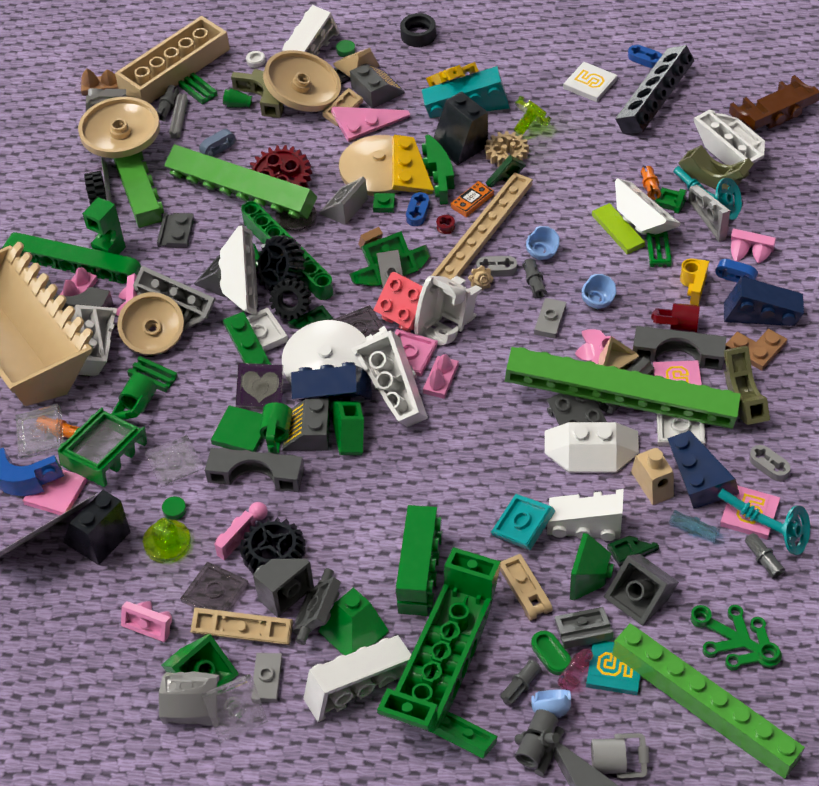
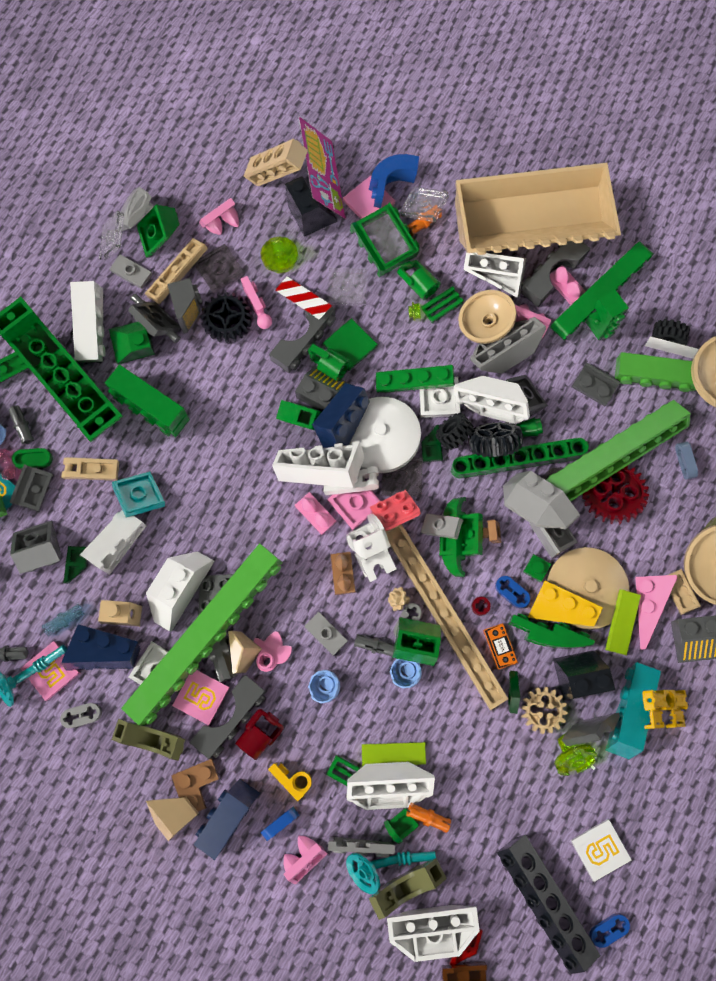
camera: 115 degrees right, 25 degrees up
(59, 530) = (276, 162): none -> tan brick
(172, 391) = (414, 311): none -> clear neon green plate
(174, 508) = (305, 270): green tile -> none
(211, 485) = (303, 297): none -> sticker
(259, 385) = (378, 370): clear smoke tile -> none
(323, 212) = (539, 501): none -> light grey wedge
(388, 130) = (623, 622): none -> lime tile
(485, 330) = (342, 573): none -> medium nougat tile
(502, 105) = (590, 729): none -> dark grey slope
(509, 237) = (417, 641): none -> green slope
(590, 568) = (68, 517): green slope -> none
(796, 339) = (171, 814): none -> tan slope

